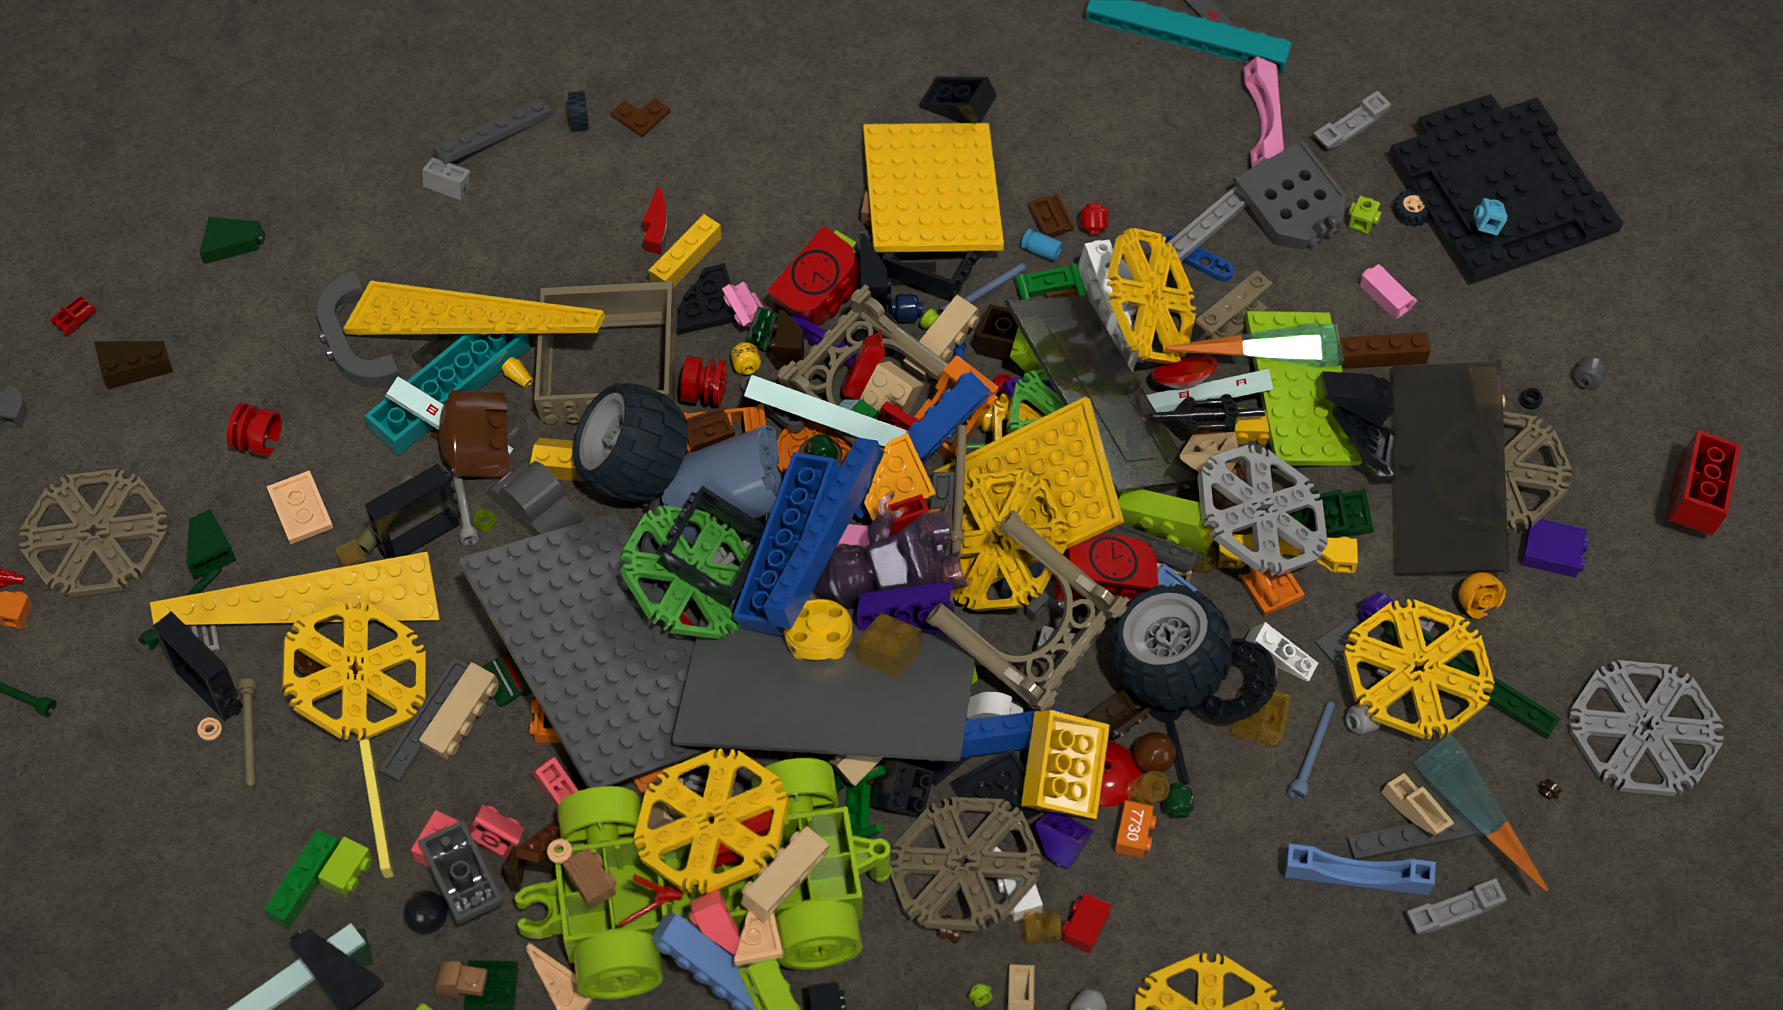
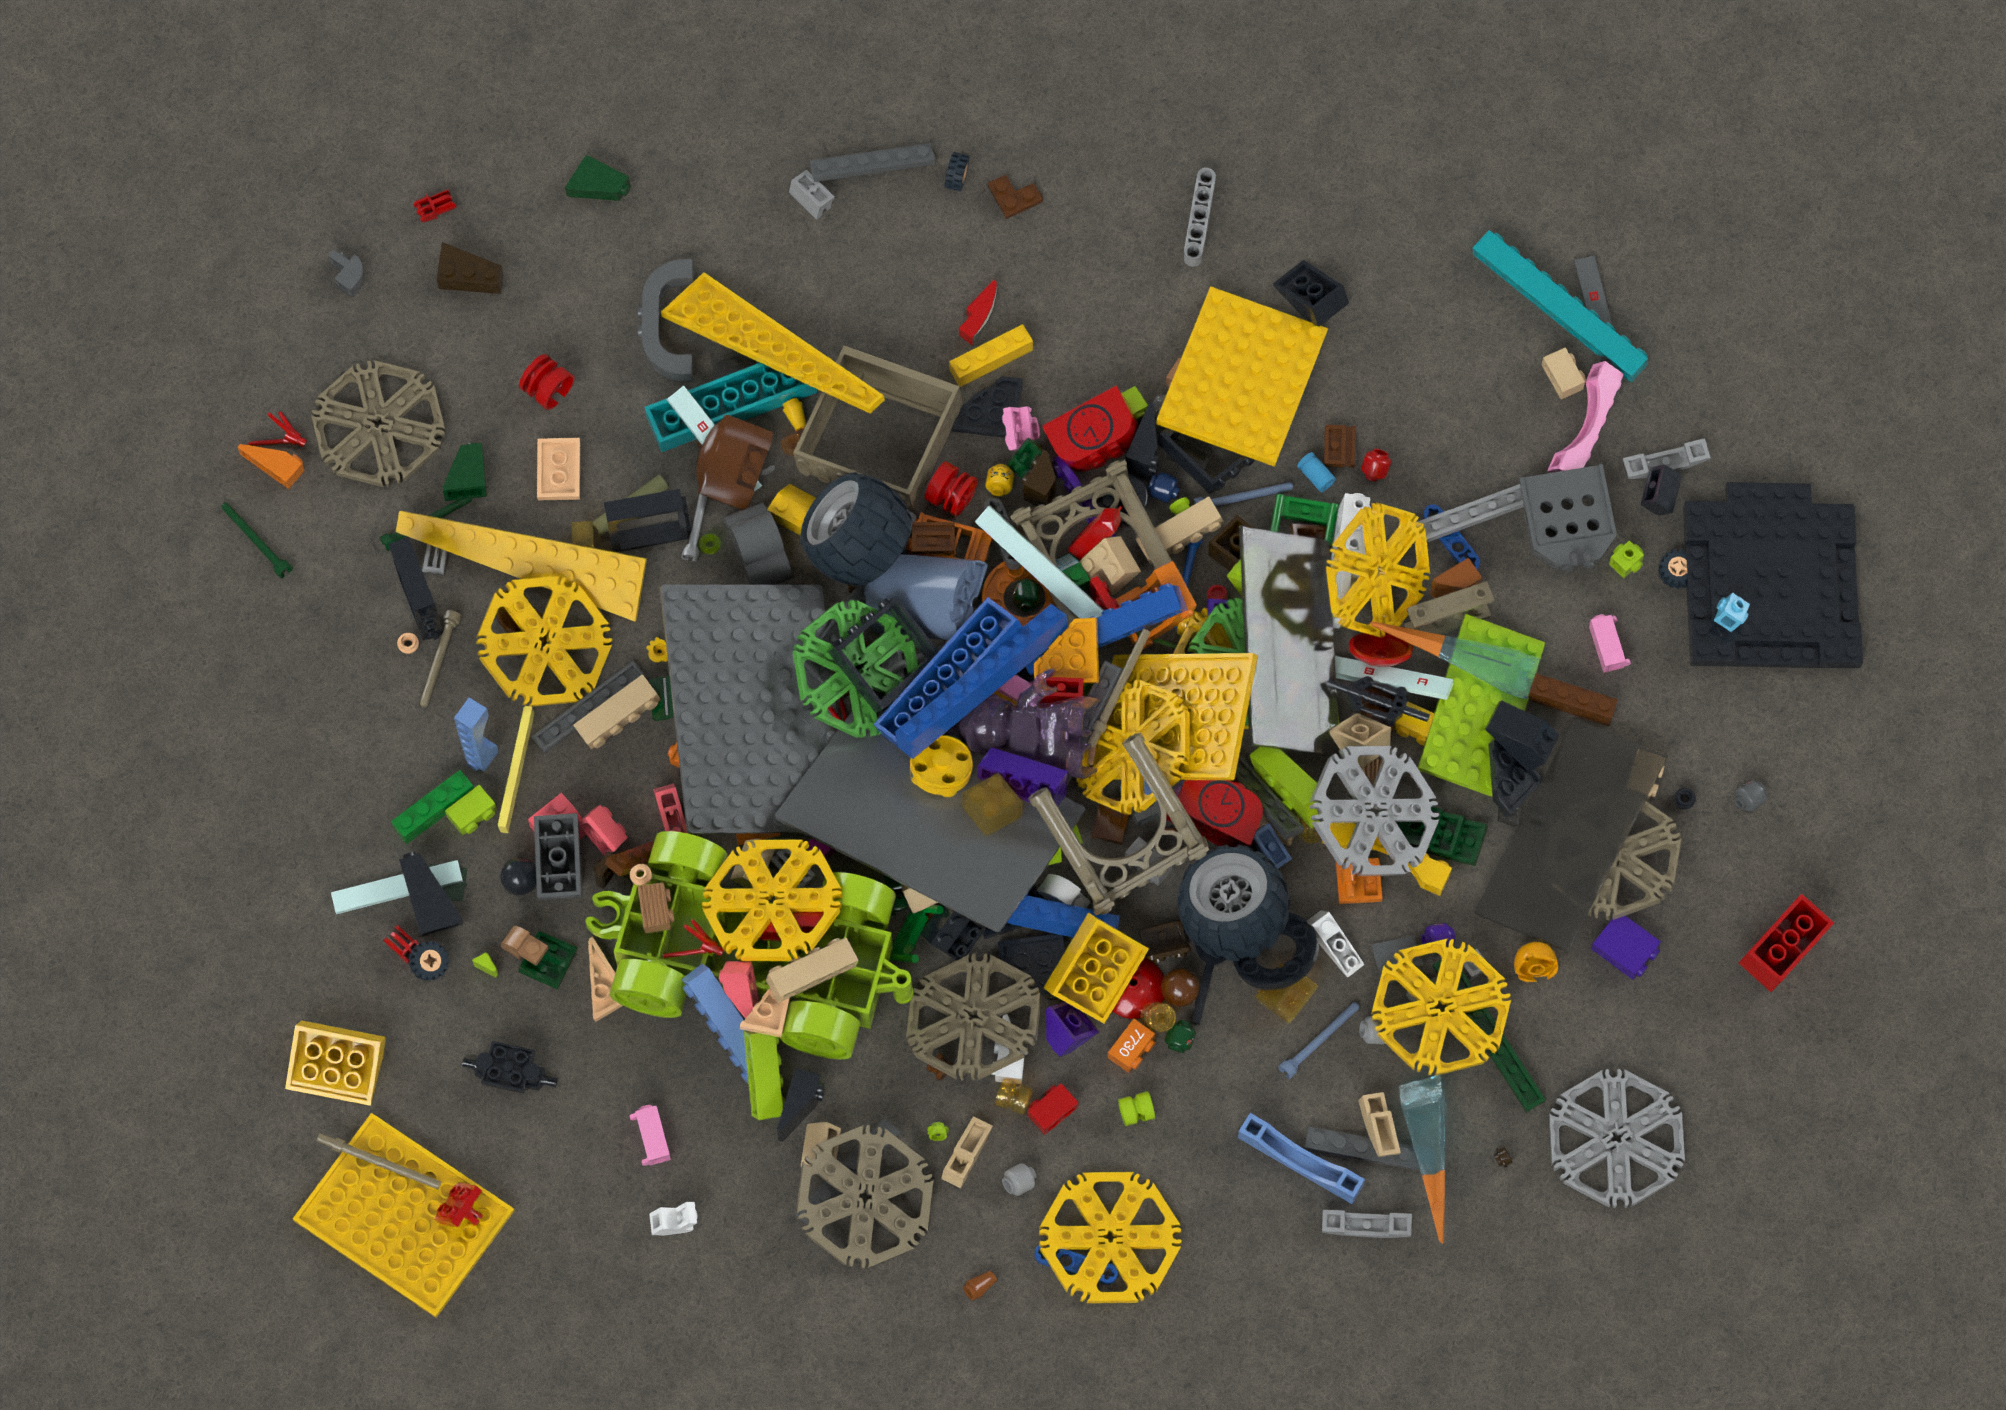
camera: 25 degrees right, 10 degrees up
(315, 768) = (470, 725): none -> medium blue arch
(477, 632) = (654, 646): none -> yellow animal
(525, 401) = (789, 441): none -> clear orange animal
(823, 72) = (1199, 208): none -> light grey beam
(1006, 627) = (1110, 825): none -> reddish brown plate
(1171, 888) = (1136, 1108): none -> lime wheel
(1221, 84) = (1563, 373): none -> tan brick
(1223, 282) = (1455, 579): none -> dark orange slope
(1362, 146) = (1661, 490): none -> black brick

